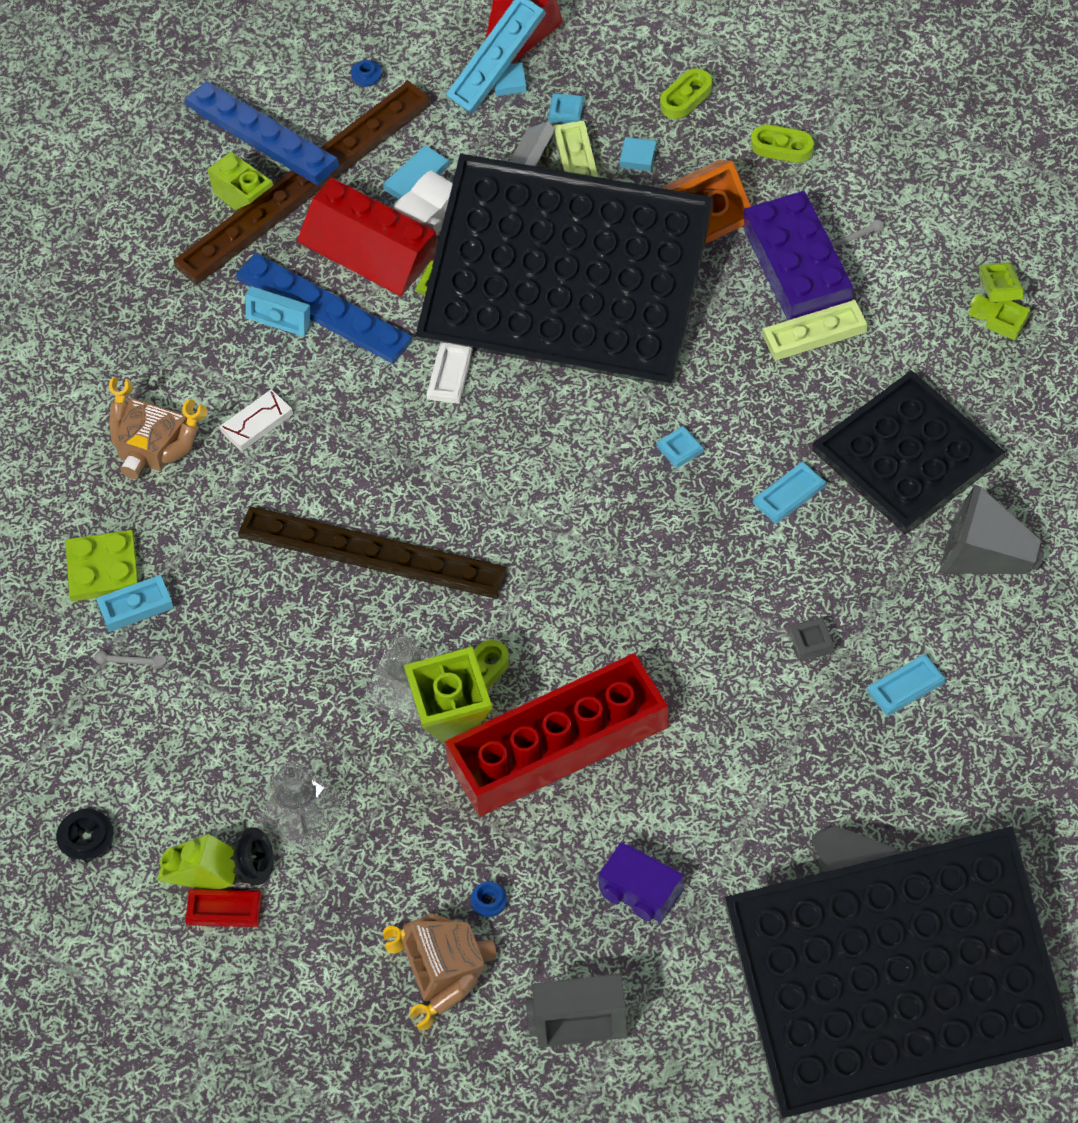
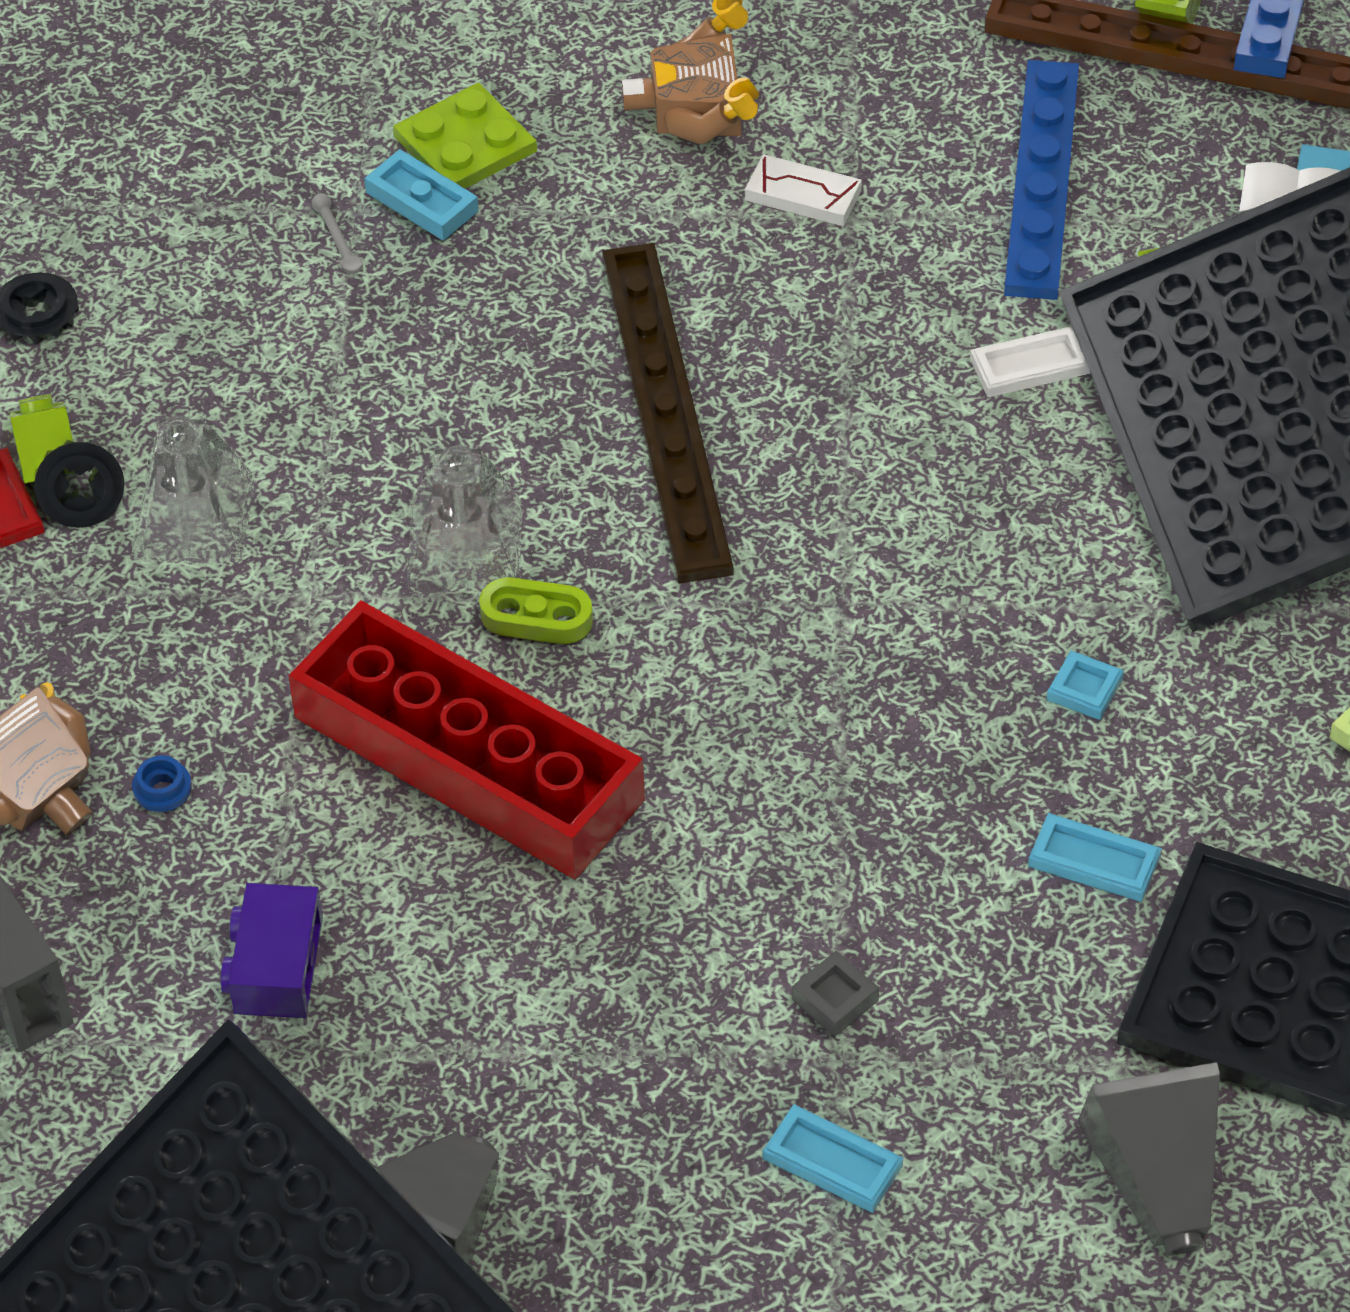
camera: 60 degrees right, 5 degrees down
(277, 311) = (993, 128): medium azure plate -> none
(367, 237) = (1187, 157): red slope -> none
(449, 693) = (421, 557): lime slope -> none

